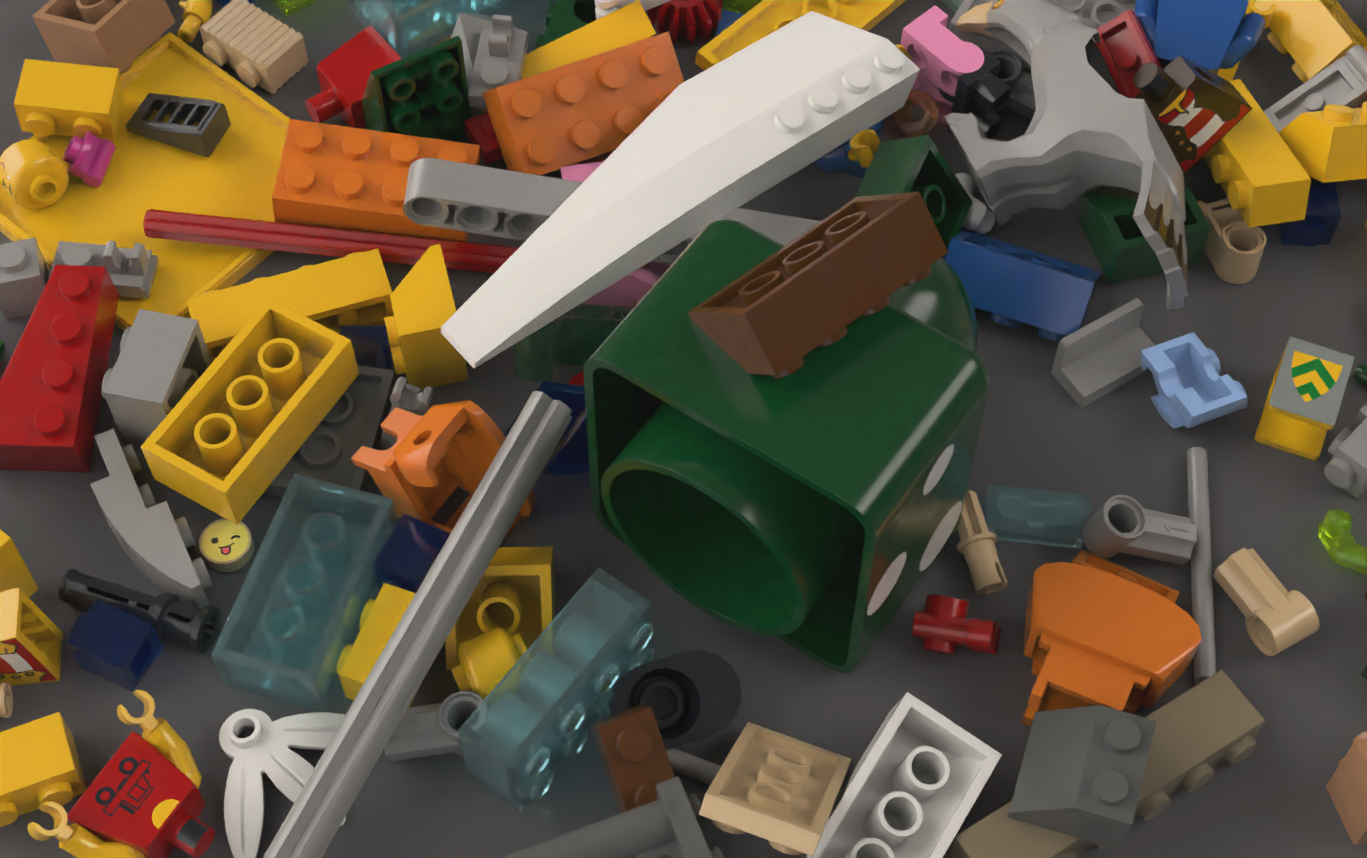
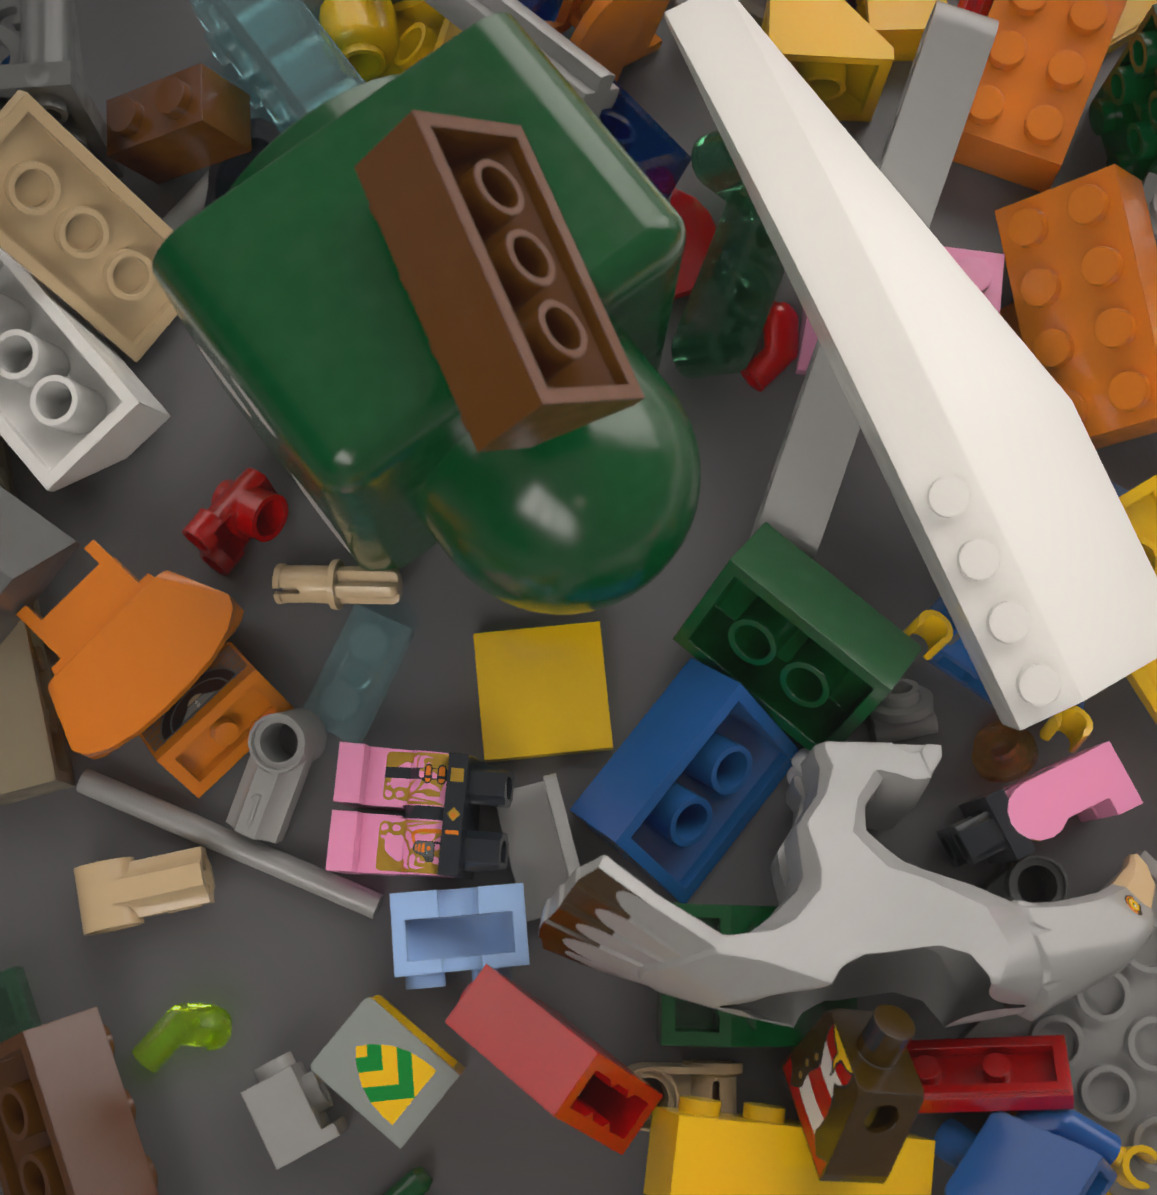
camera: 105 degrees right, 20 degrees up
(1016, 395) = (542, 692): none -> yellow tile
(1124, 433) = (440, 817): none -> hips
(1252, 282) = (553, 1060): none -> red brick

